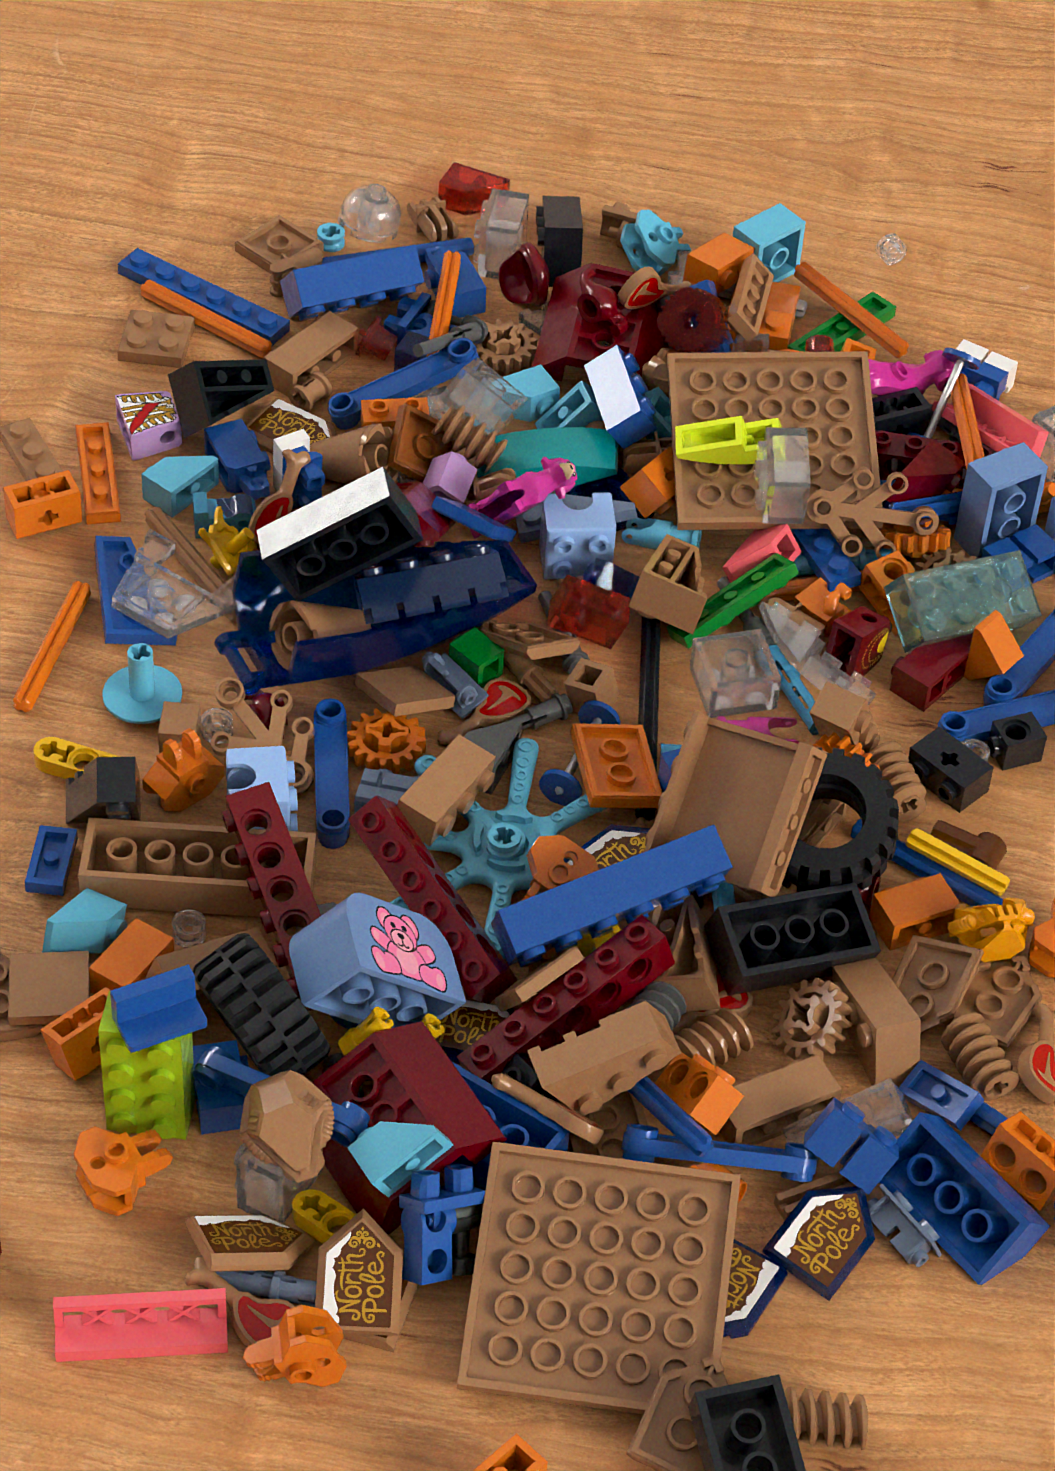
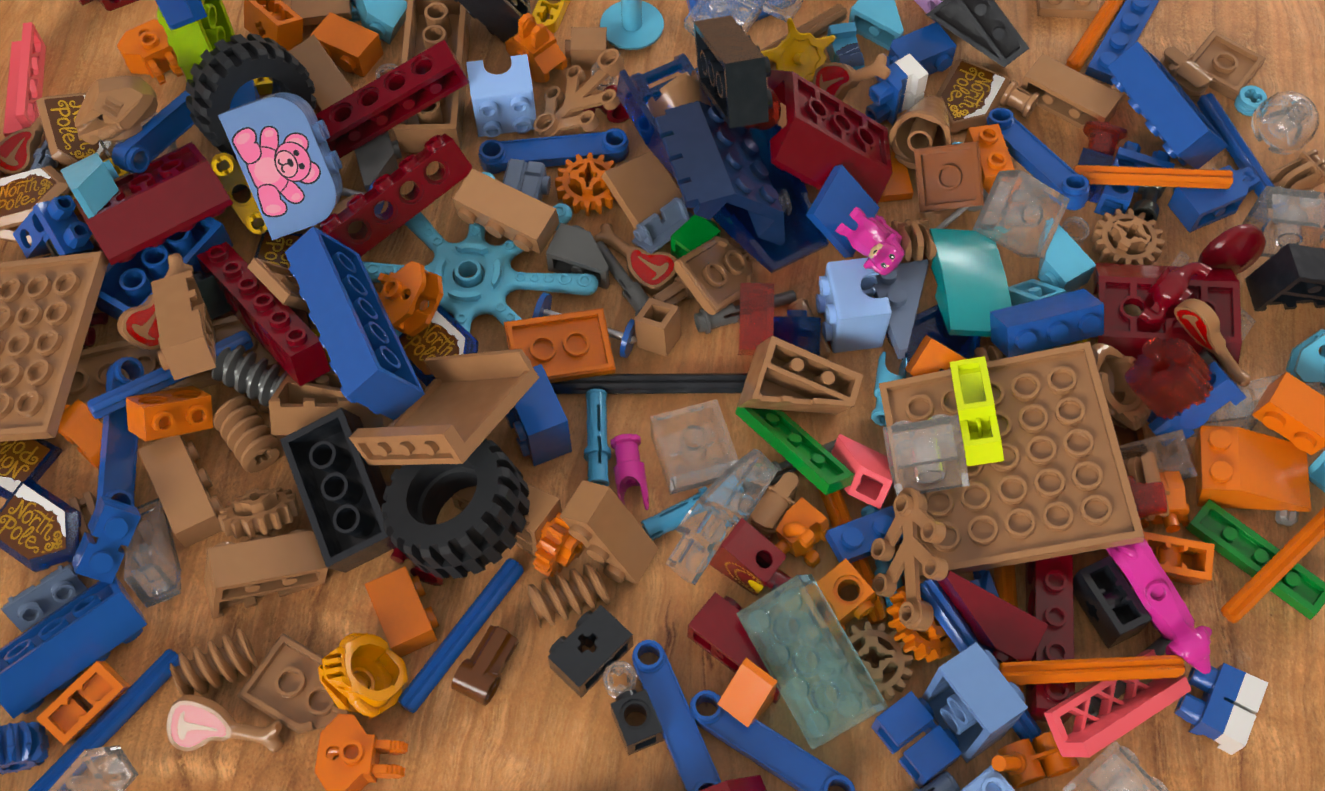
camera: 90 degrees right, 15 degrees up
(450, 476) = (915, 202): lavender brick -> none
(470, 437) = (957, 203): medium nougat piece -> none
(473, 329) = (1108, 190): dark grey pin -> none
(499, 850) = (449, 267): medium azure bush -> none
(750, 298) = (1235, 435): medium nougat plate -> none
(935, 977) = (308, 621): medium nougat tile -> none
(941, 1095) = (173, 626): blue plate -> none
(957, 862) = (457, 651): yellow axle -> none
(961, 360) = (1187, 655): axle -> none

